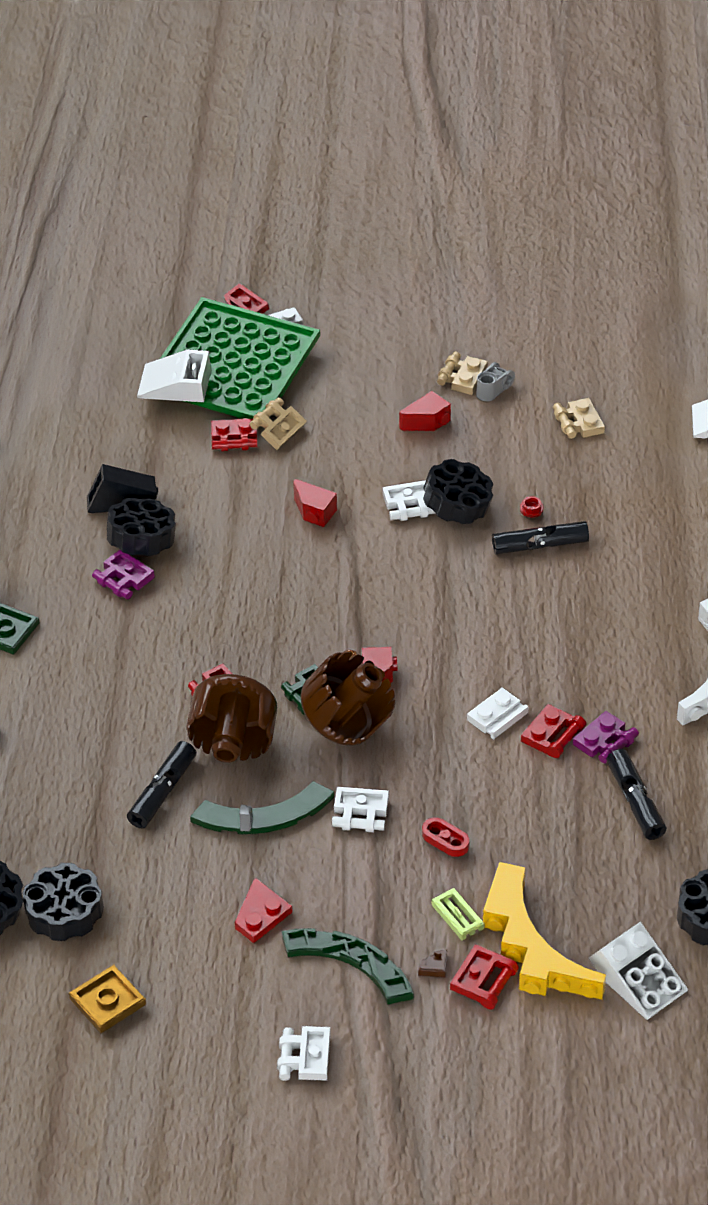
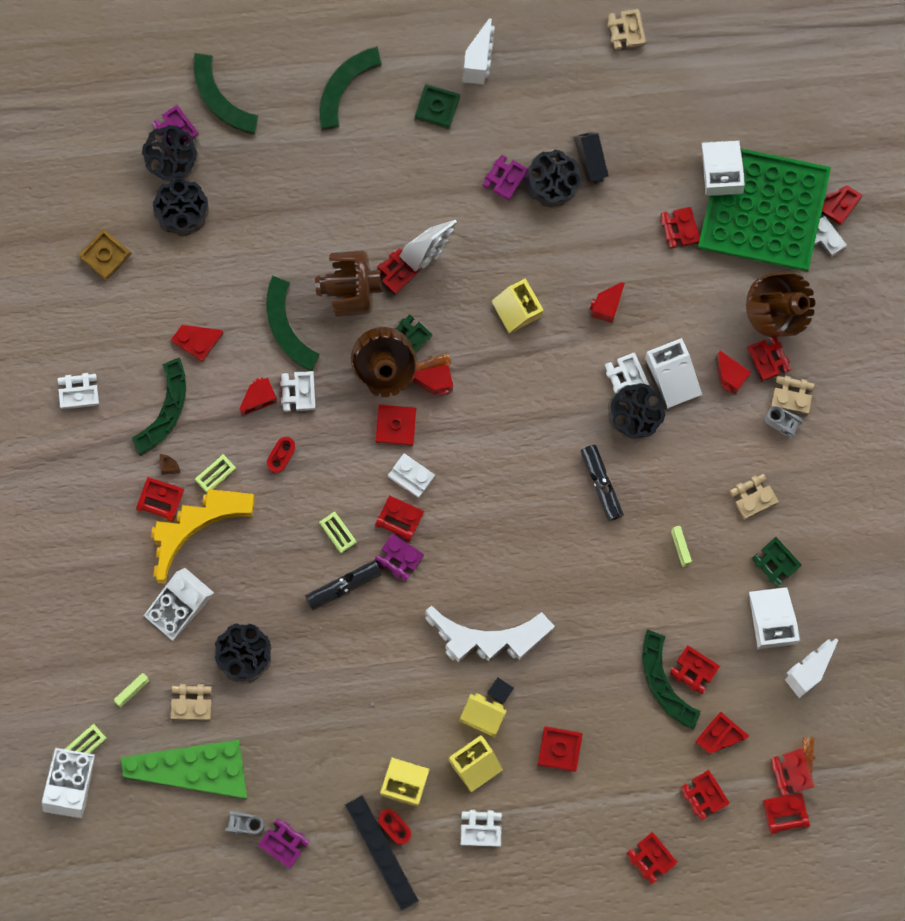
camera: 70 degrees right, 30 degrees up
(161, 784) = (294, 248): black piece -> none
(197, 637) = (427, 245): none -> white slope
(245, 817) = (273, 312): light grey tile -> none
(281, 429) = (691, 263): tan plate -> none
(298, 578) = (517, 306): none -> light yellow slope
(356, 349) = (780, 304): none -> reddish brown piece
(358, 849) = (258, 396): none -> red slope
(410, 456) = (673, 373): none -> white slope
(414, 383) = (764, 361): none -> red plate
(426, 719) = (395, 425): none -> red plate
(531, 507) = (638, 472): red plate -> none
(563, 798) = (346, 545): none -> yellowish green tile
(633, 481) = (681, 546): none -> yellowish green tile
(656, 405) = (780, 557): none -> dark green plate

